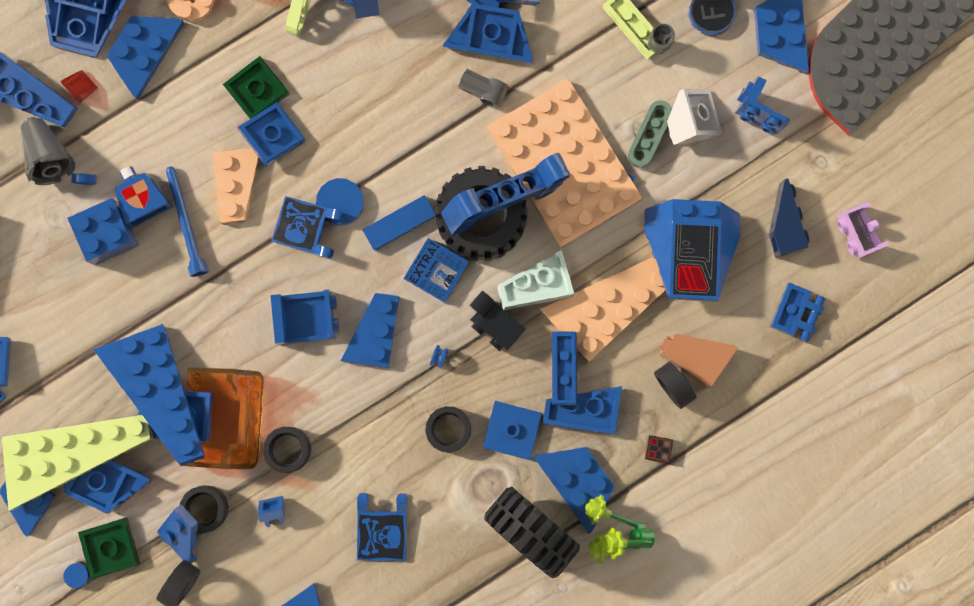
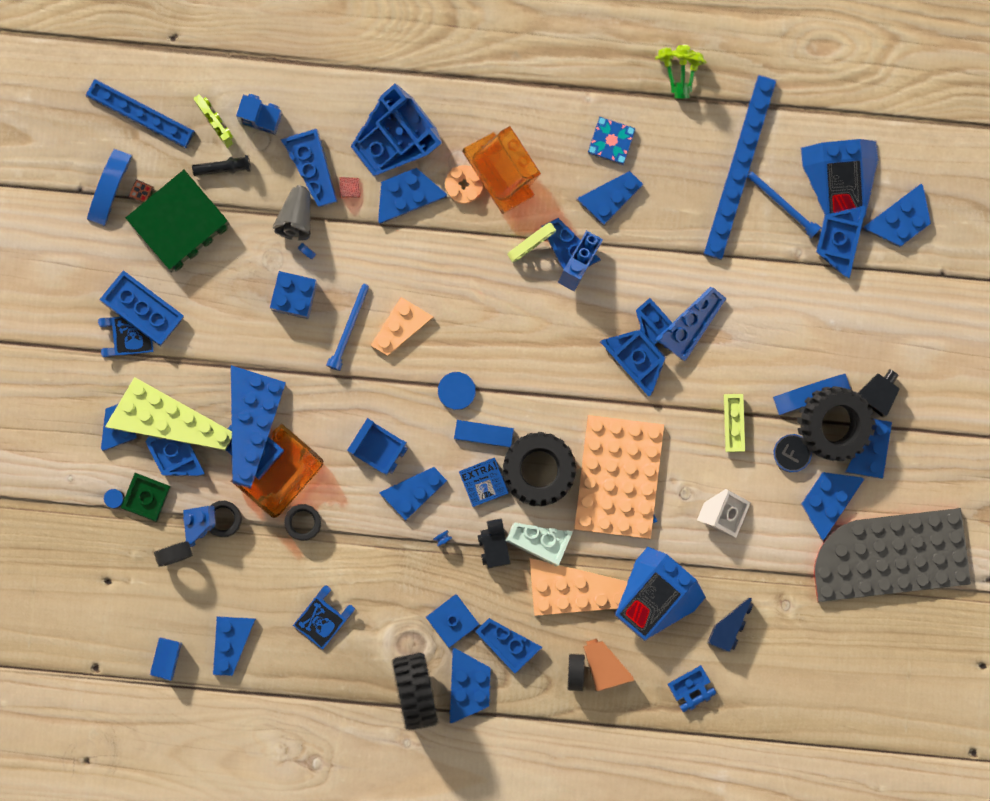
camera: 35 degrees right, 0 degrees up
(140, 198) = (333, 290): blue torso -> none
(256, 88) = (459, 276): dark green tile -> none
(271, 134) = (446, 314): blue tile -> none
(271, 509) = (264, 552): blue tile -> none
(302, 225) = (420, 388): flag -> none
(429, 430) = (427, 588): black tyre -> none
(489, 91) = (606, 392): dark grey piece -> none
(543, 180) = (592, 478): blue beam -> none
(564, 368) = (515, 607): blue tile -> none
(612, 542) = (458, 736): lime plant -> none
(650, 124) = (679, 505): sand green plate -> none
(658, 449) = (535, 705): tile -> none
(663, 33) = (744, 444): dark grey wheel -> none
(754, 112) = (762, 539): blue bracket -> none
(860, 231) = (773, 668): lavender window -> none

